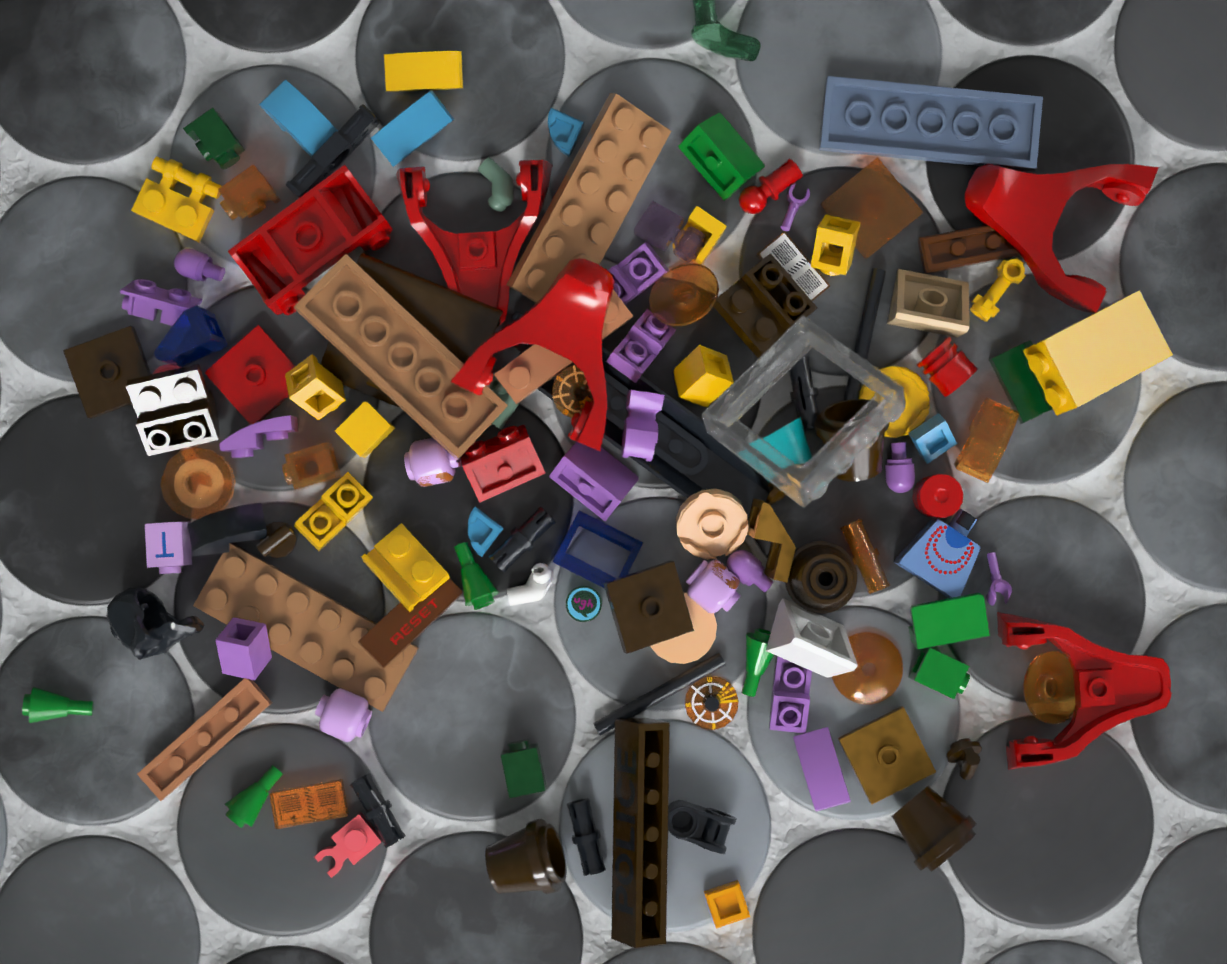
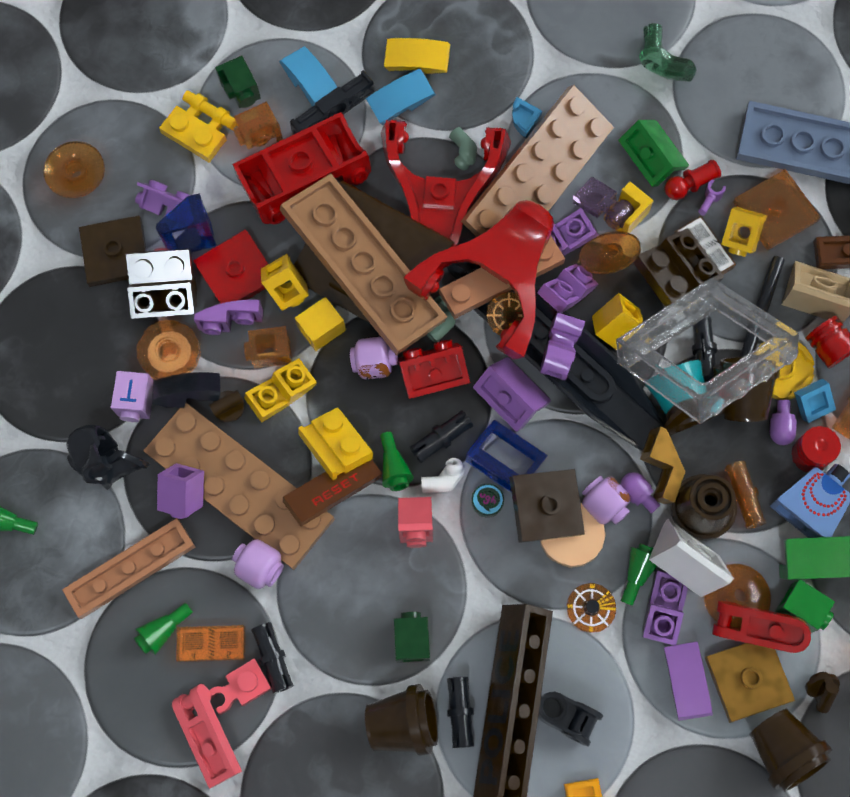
camera: 10 degrees right, 15 degrees down
(25, 276) = (66, 161): none -> clear orange dish
(197, 265) = (204, 177): medium lavender cylinder -> none
(322, 902) = (206, 736): none -> coral plate
(482, 531) = (407, 425): dark azure tile -> none
(507, 643) = (415, 521): none -> coral slope
(660, 693) = (548, 590): black bar -> none
(711, 523) = (611, 445): light nougat tile -> none
(894, 704) = (762, 627): none -> red plate

